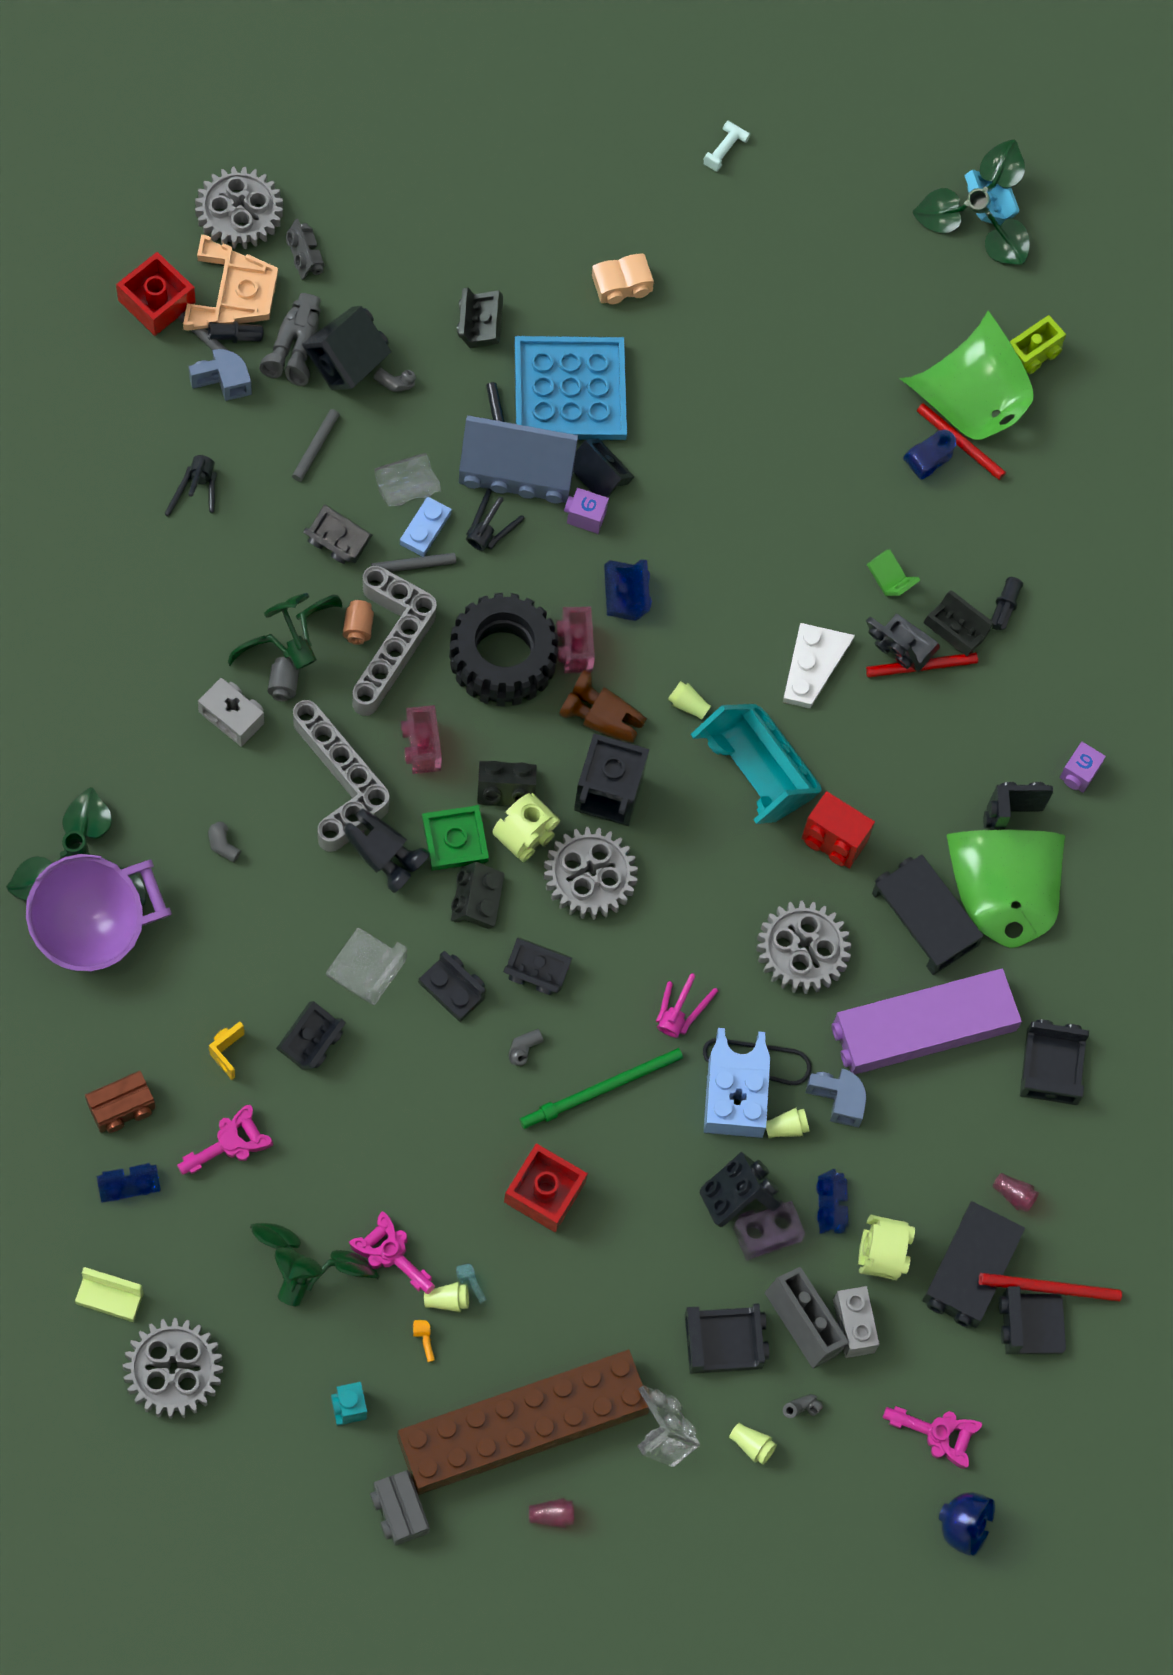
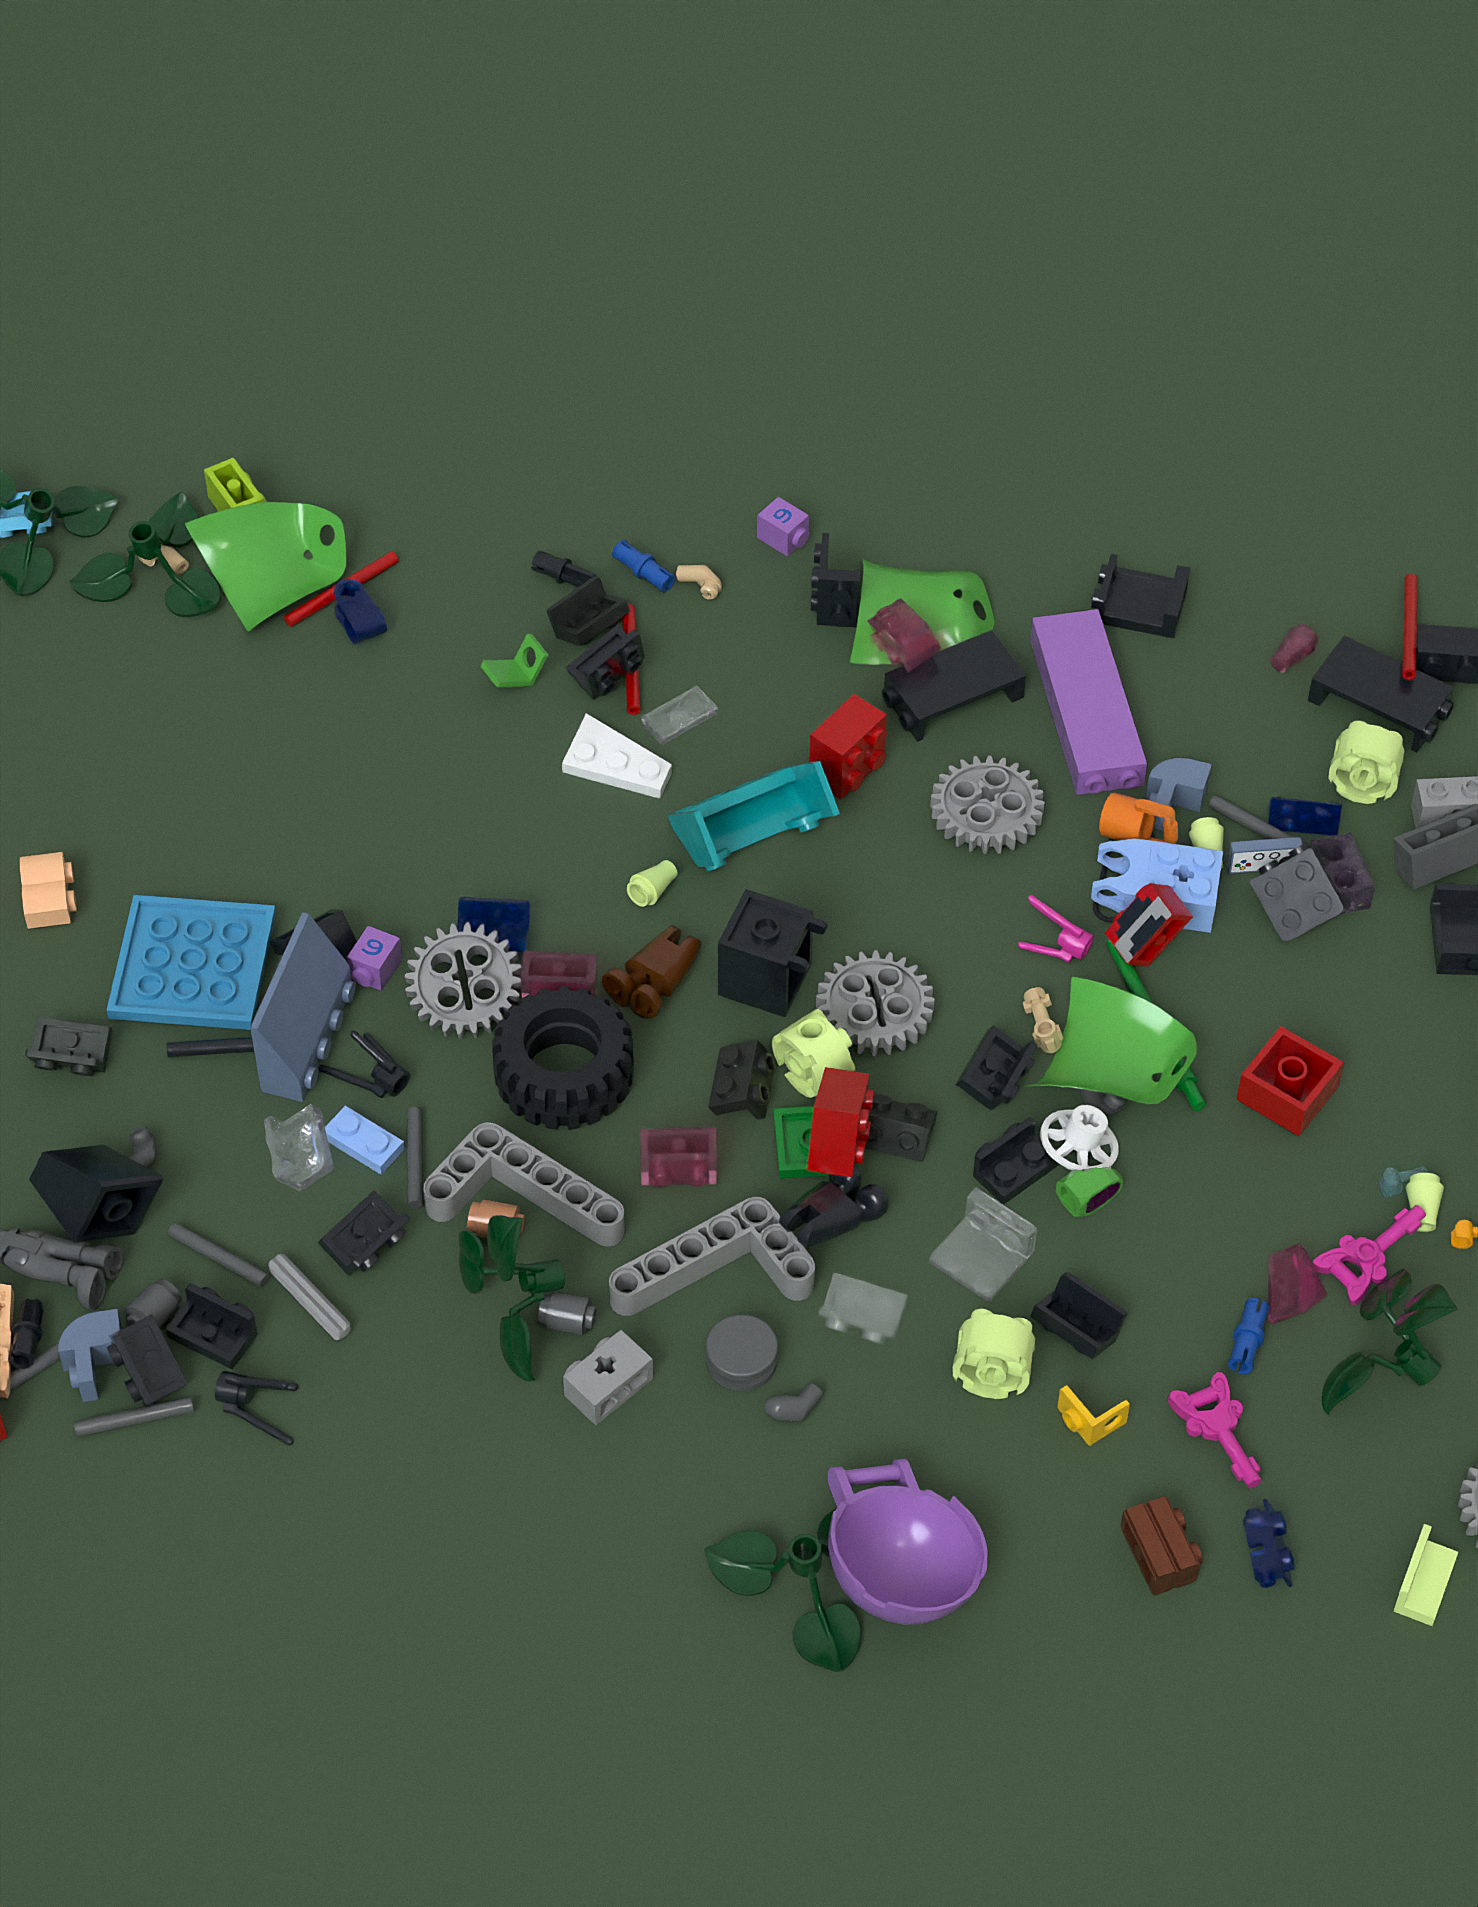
camera: 75 degrees left, 15 degrees down
(177, 411) = (133, 1416): none -> dark grey bar
(210, 406) = (146, 1360): none -> black bracket
(248, 448) = (213, 1326): none -> black bracket
(261, 801) = (741, 1352): none -> dark grey head
(263, 407) = (157, 1299): none -> dark grey brick
(266, 973) = (994, 1354): none -> yellowish green brick
(284, 508) = (309, 1297): none -> light grey axle
(304, 882) = (863, 1307): none -> clear bracket
(310, 1163) = (1248, 1335): none -> blue pin
(359, 1198) = (1292, 1284): none -> clear pink slope
(431, 1040) = (1088, 1189): none -> bright green rock
(446, 840) = (840, 1122): none -> red brick
(478, 1033) = (1082, 1132): none -> white wheel
(558, 1053) = (1117, 1045): none -> bright green piece
(563, 552) = (431, 987): none -> light grey gear
(575, 1001) = (1046, 1033): none -> tan bar
(684, 1071) = (1148, 924): none -> brick
(780, 1168) = (1251, 855): none -> tile
(793, 1058) = (1132, 818): none -> orange piece
(818, 1166) = (1246, 819): none -> dark grey bar
(864, 705) = (679, 715): none -> clear plate
(943, 269) = (107, 576): none -> dark green plant
(957, 862) = (903, 635): none -> clear pink brick
(974, 308) = (174, 559): none -> tan arm
(1019, 707) = (704, 576): none -> tan arm
(1021, 663) = (643, 565): none -> blue pin

